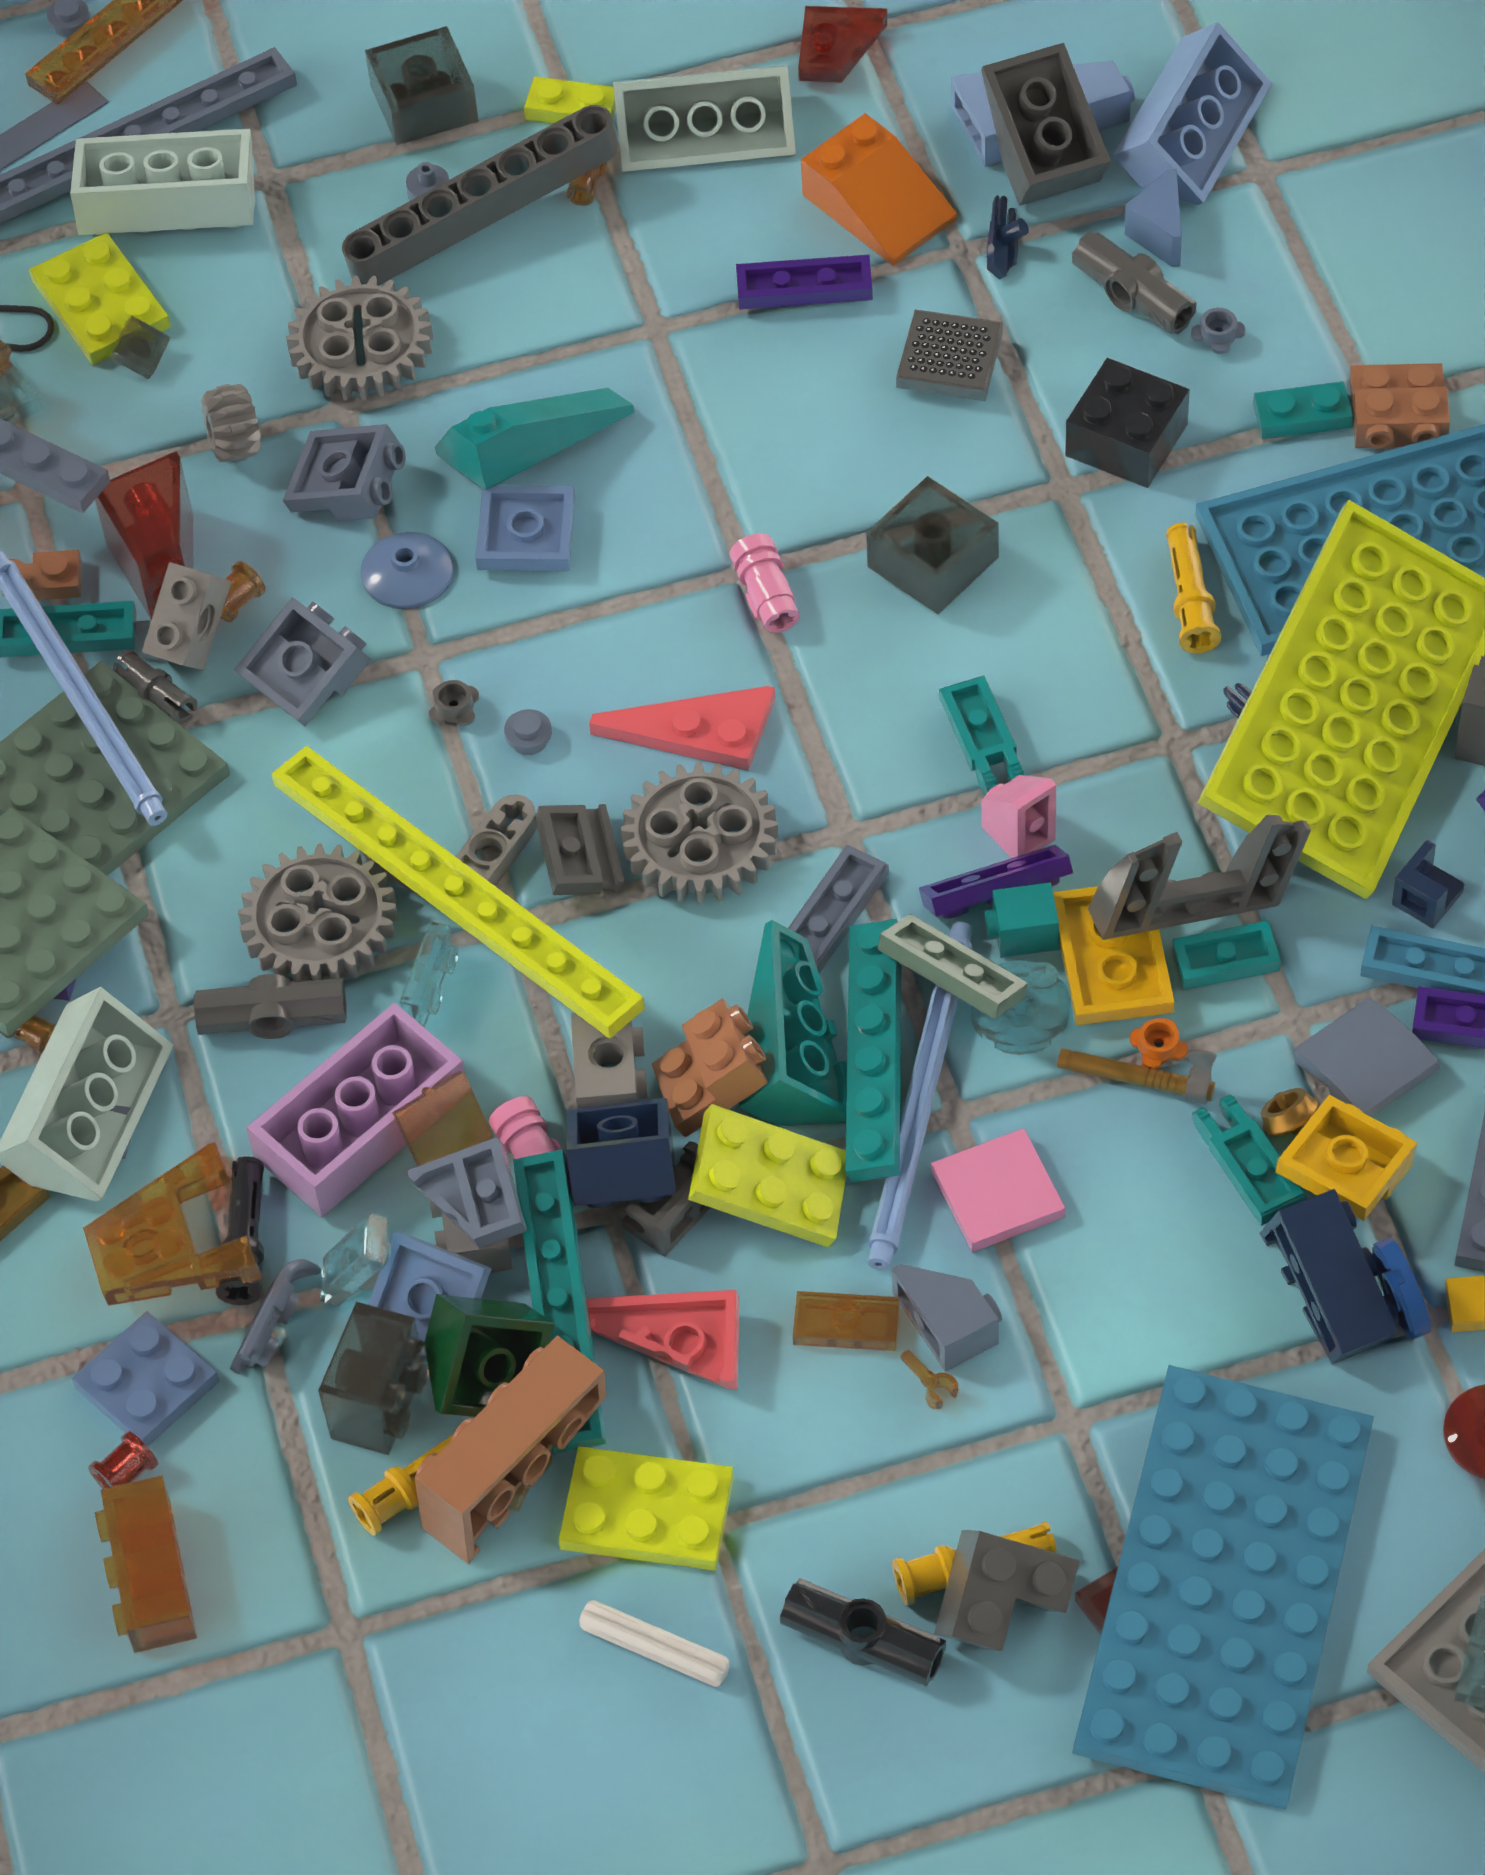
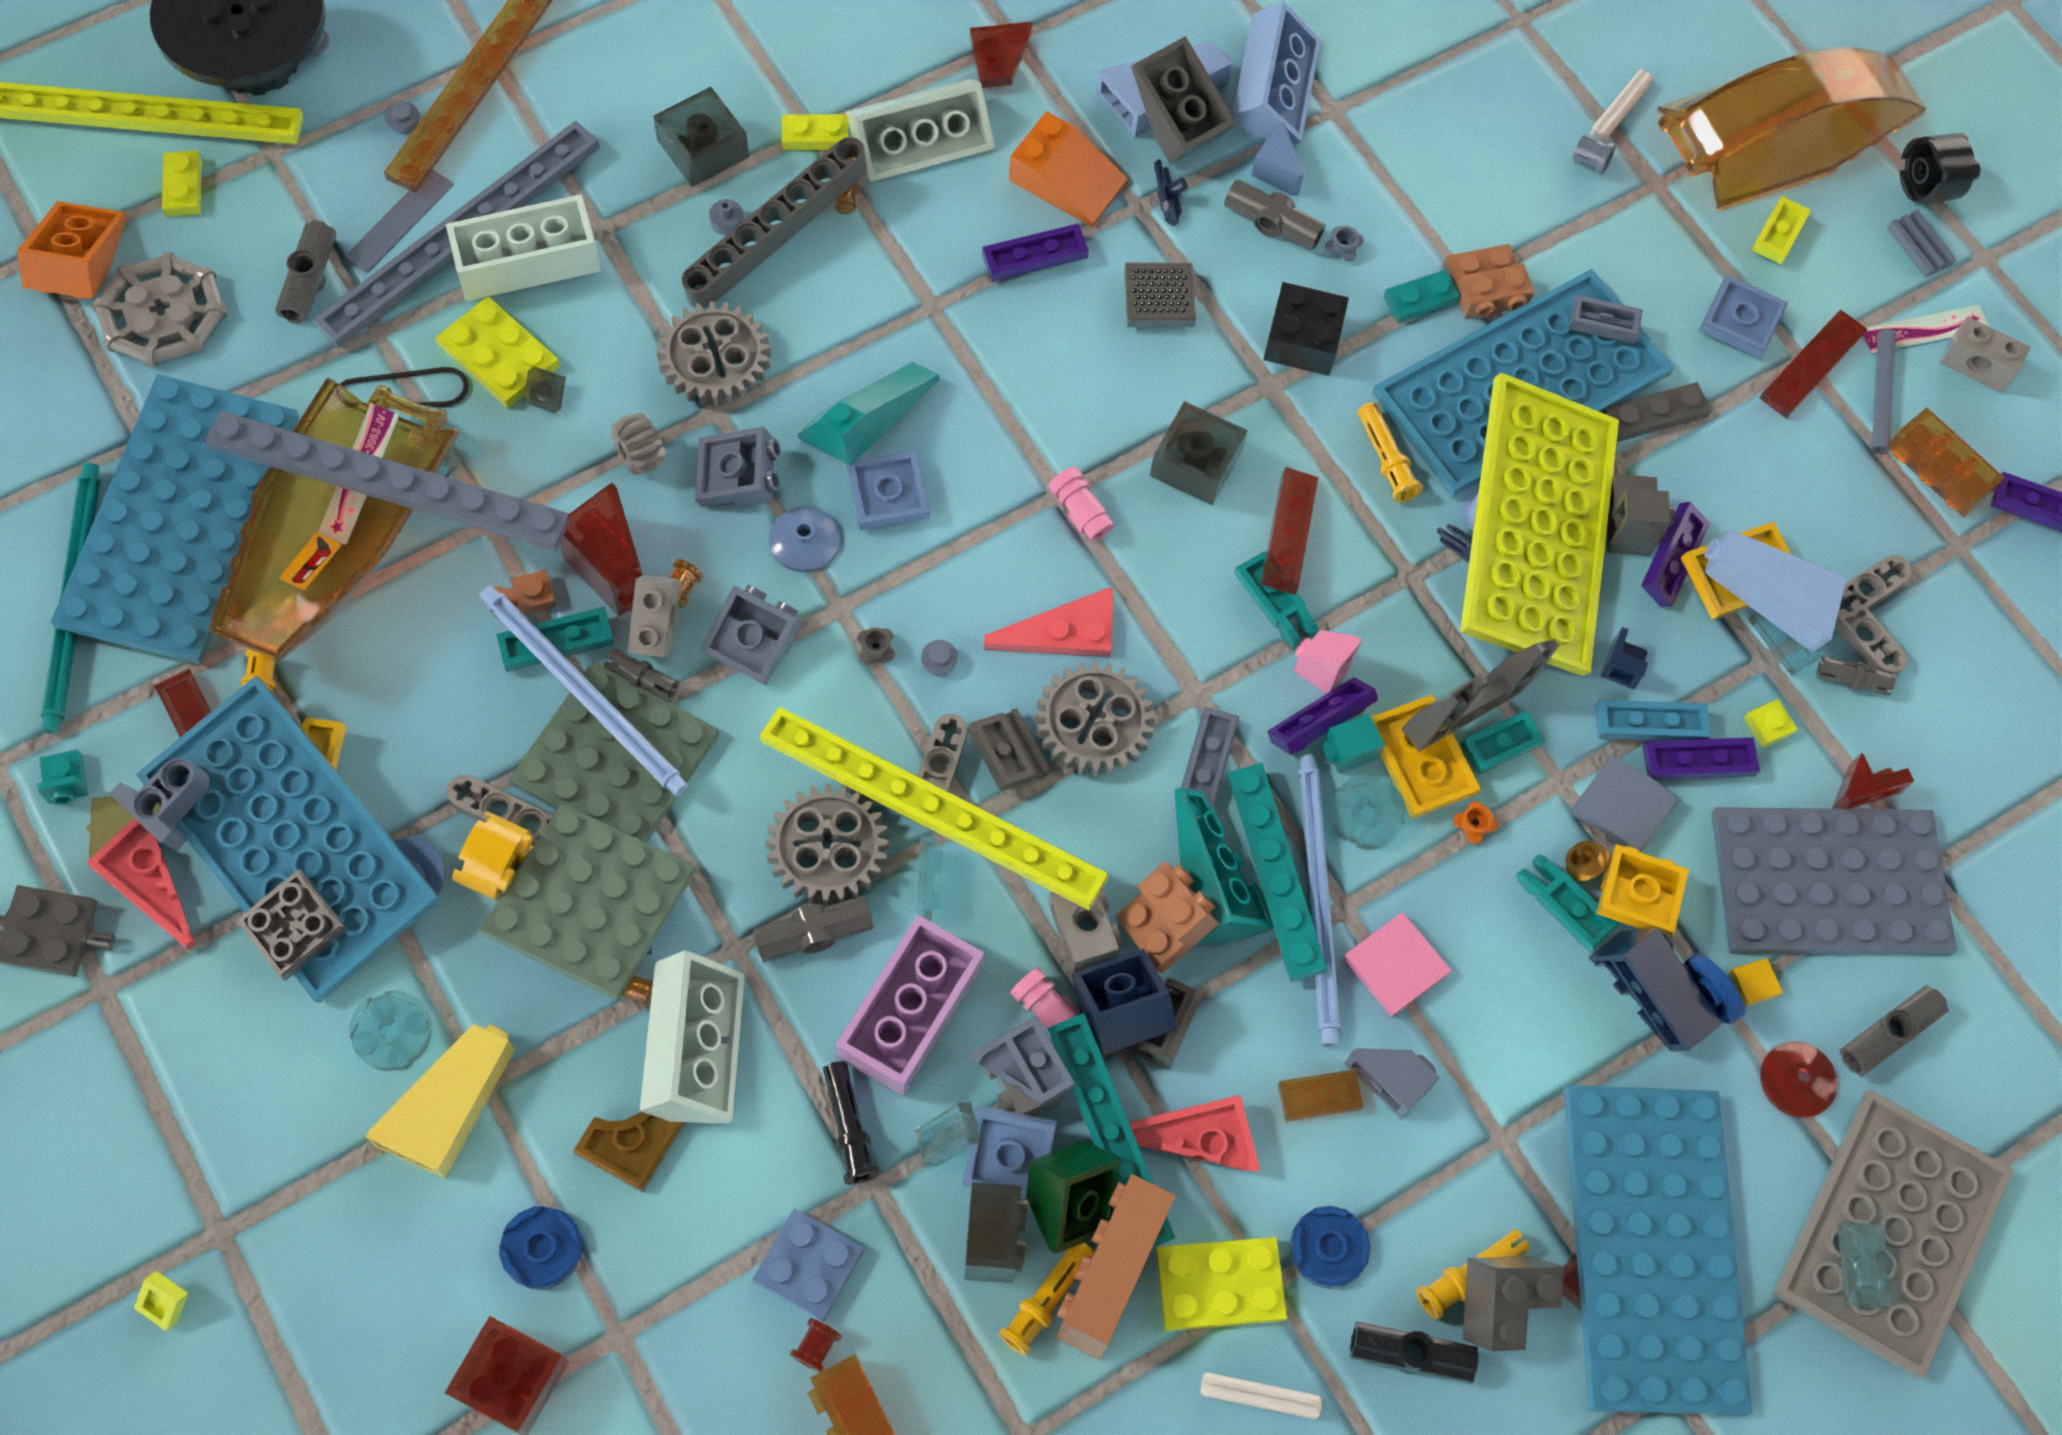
camera: 25 degrees left, 10 degrees up
(147, 1244) = (779, 1155): clear orange wing -> none
(276, 1306) = (891, 1182): sand blue piece -> none
(442, 1120) = (982, 1007): clear orange piece -> none
(769, 1175) = (1235, 994): neon yellow plate -> none
(800, 1496) = (1329, 1247): none -> blue tile
(930, 1380) = (1396, 1131): clear orange hand -> none
(952, 966) = (1319, 796): sand green plate -> none
(1025, 657) = (1289, 531): none -> clear red tile
(1195, 1087) = (1513, 850): pearl gold piece -> none

